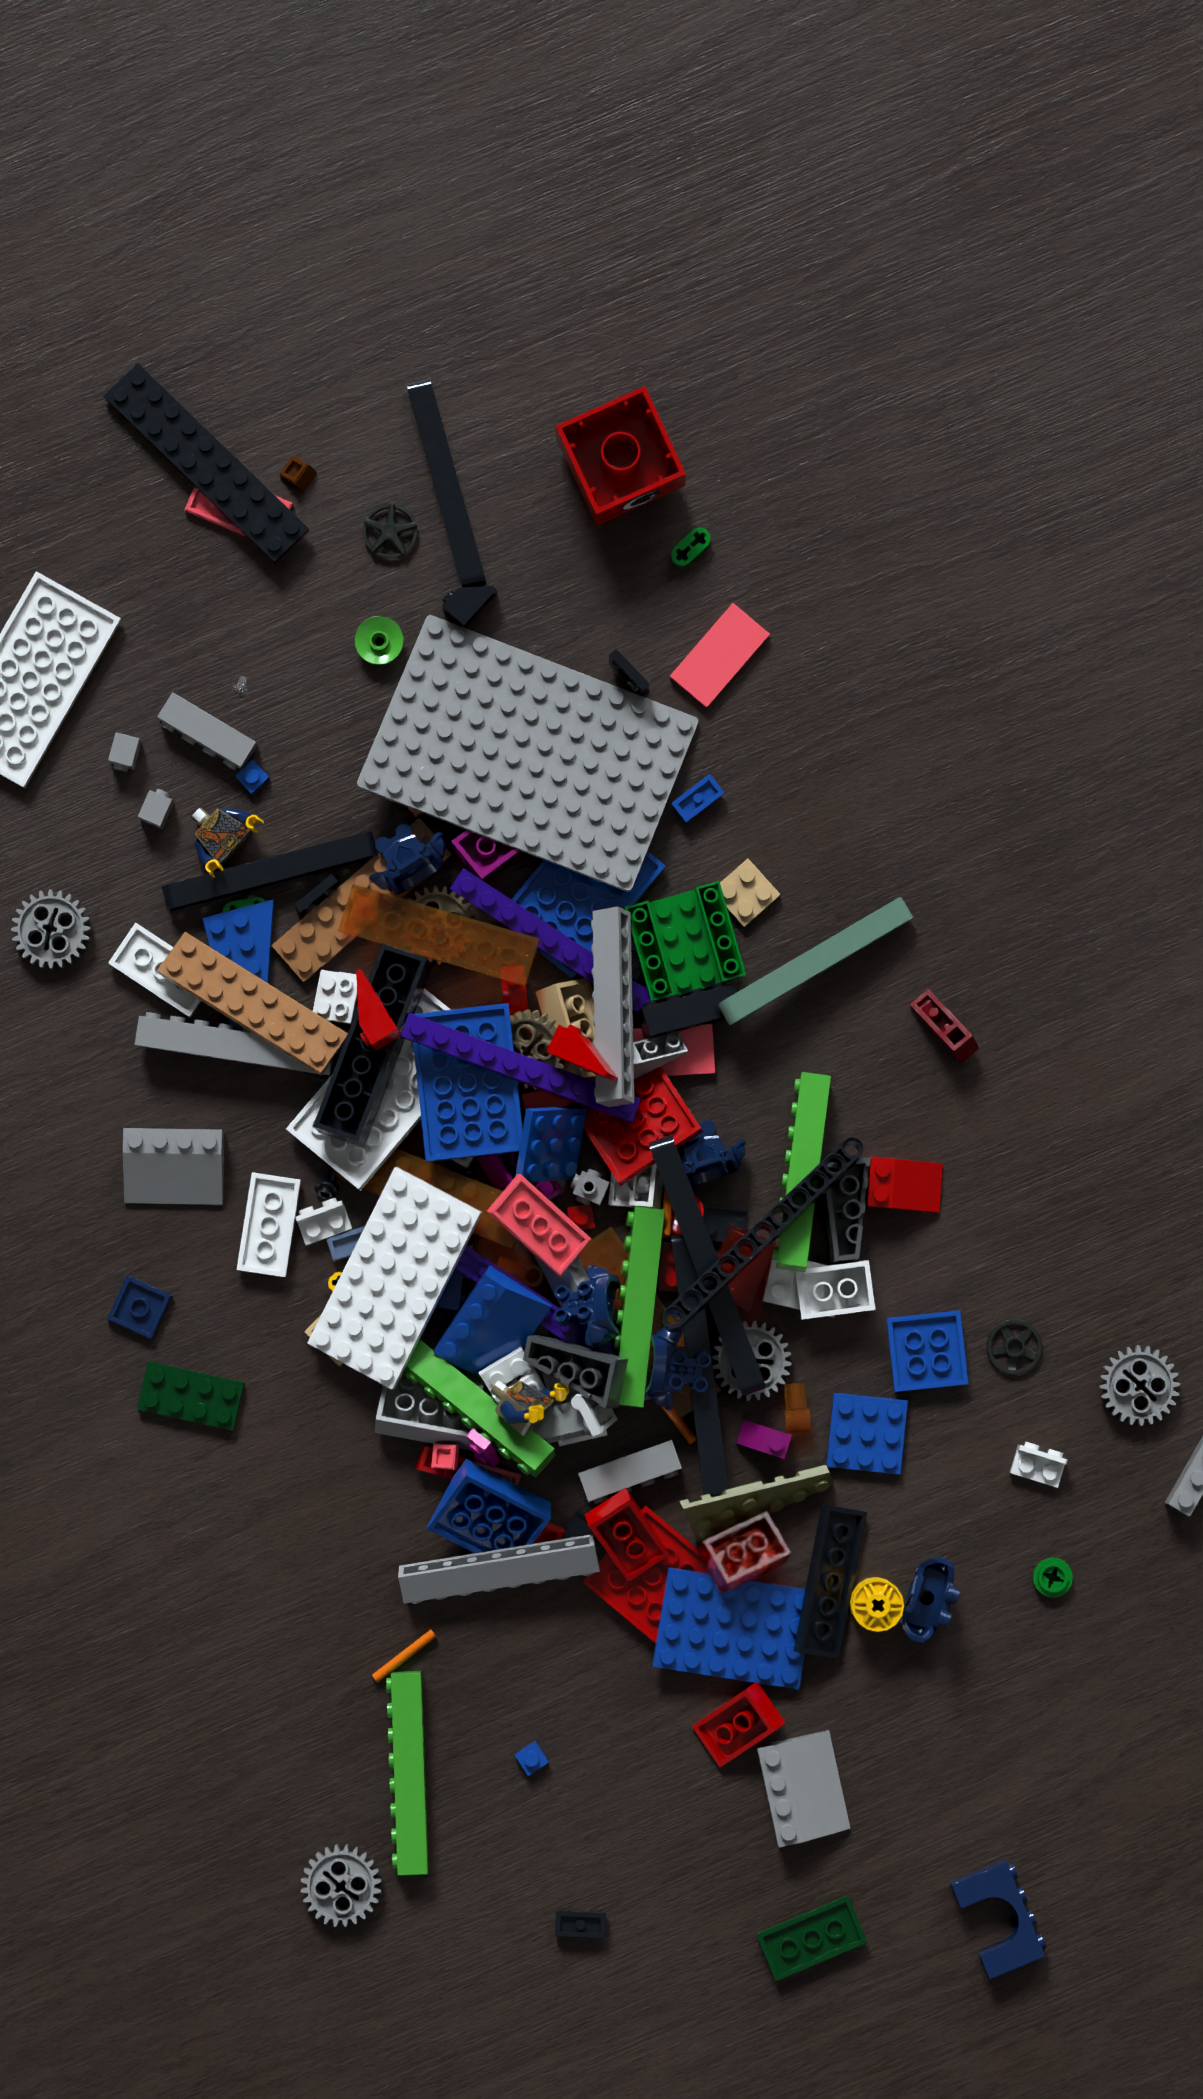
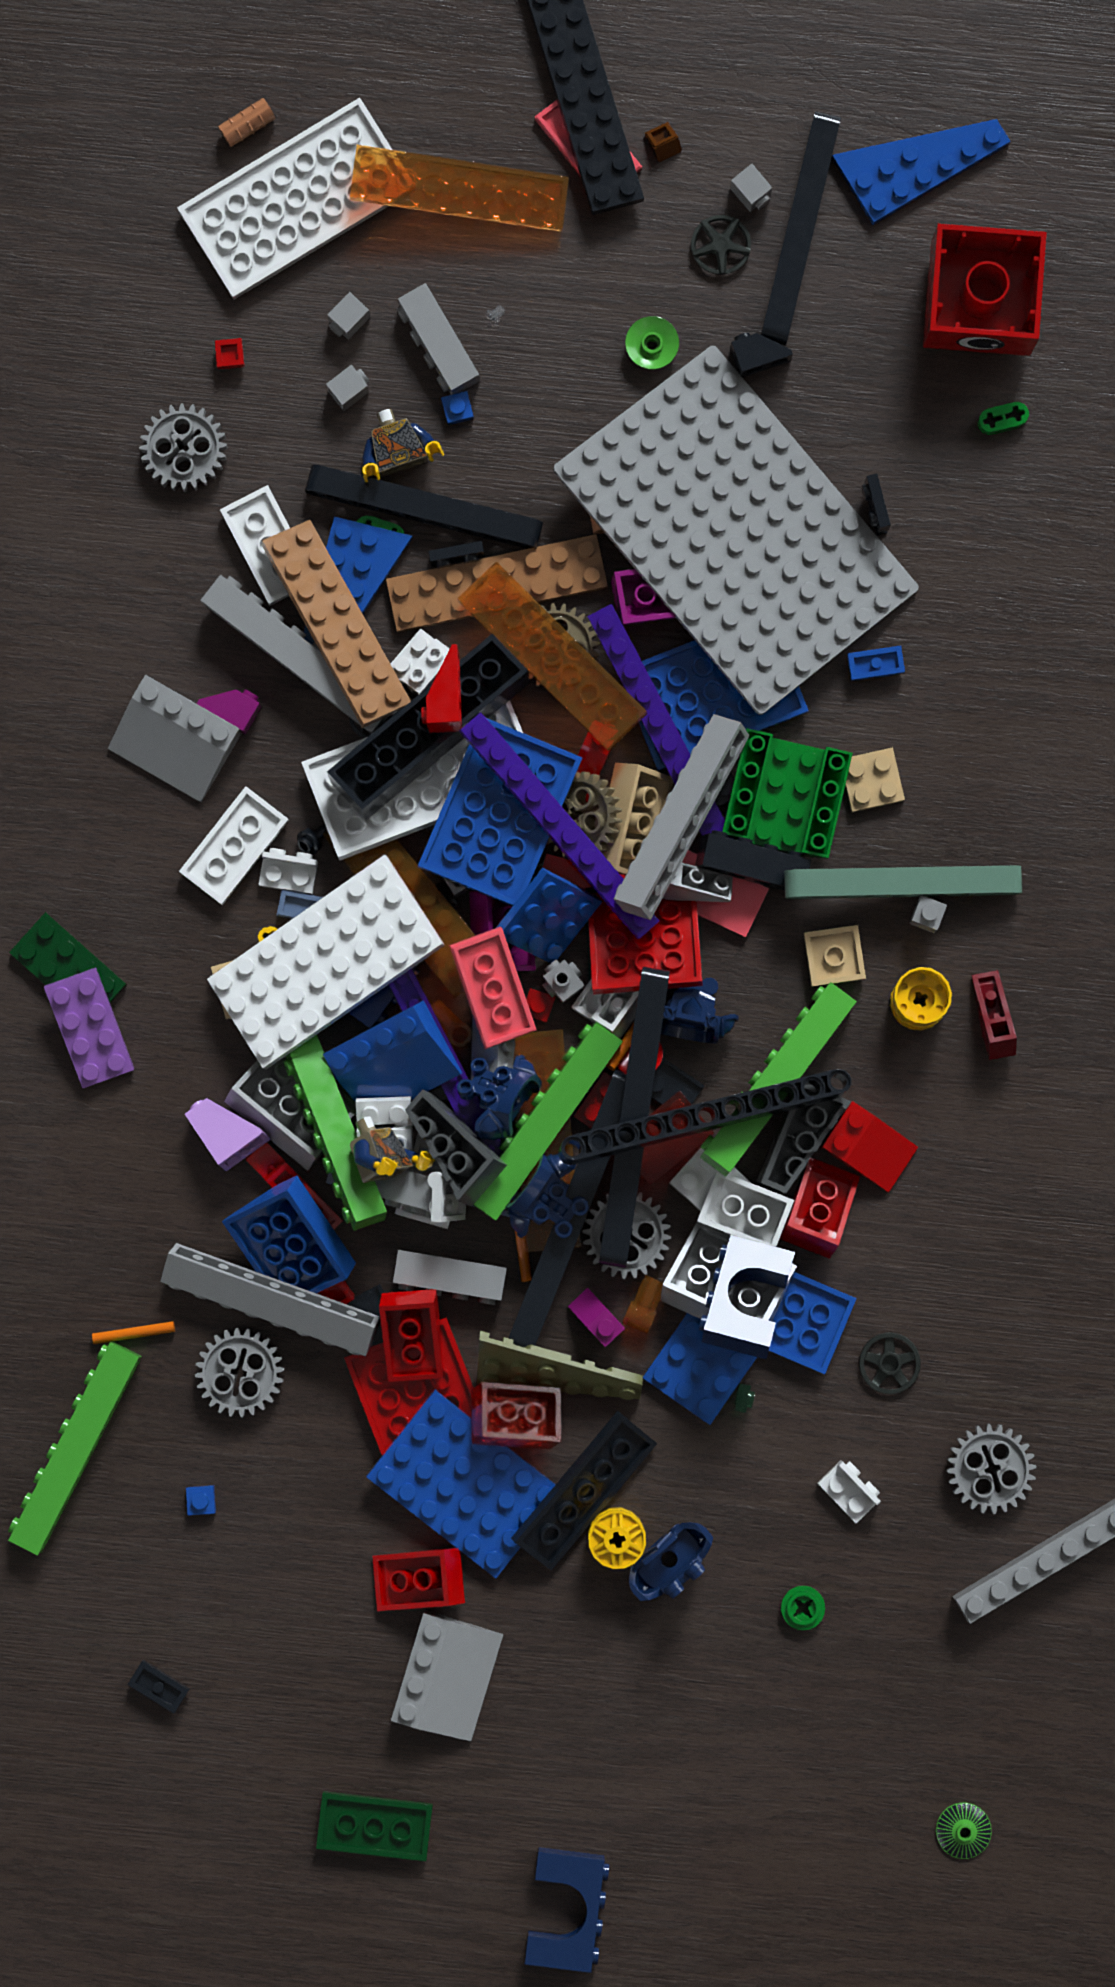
camera: 30 degrees right, 0 degrees up
(46, 833) = (229, 353): none -> red plate
(139, 1307) = (66, 856): dark blue tile -> none
(156, 601) = (459, 188): none -> clear orange plate
(207, 1114) = (234, 707): none -> magenta slope
(234, 1433) = (89, 1027): none -> medium lavender plate
(389, 1457) = (225, 1133): none -> lavender slope
(390, 473) = (751, 188): none -> light grey brick
(407, 860) = (562, 567): dark blue piece -> none
(445, 1456) = (278, 1162): coral tile -> none
(483, 1449) = (317, 1174): dark pink plate -> none
(503, 391) = (906, 169): none -> blue wing
(527, 1633) = (214, 1367): none -> light grey gear
(578, 1050) = (625, 840): red slope -> none
(719, 655) = (973, 537): coral tile -> none
(793, 1049) = (834, 955): none -> tan plate
(848, 975) = (927, 914): none -> light grey brick
(852, 1354) = (693, 1274): none -> light grey slope
(869, 1388) = (743, 1262): none -> arch
(877, 1032) = (925, 984): none -> yellow wheel
(892, 1254) = (820, 1208): none -> red slope
(915, 1438) = (744, 1398): none -> clear green plate

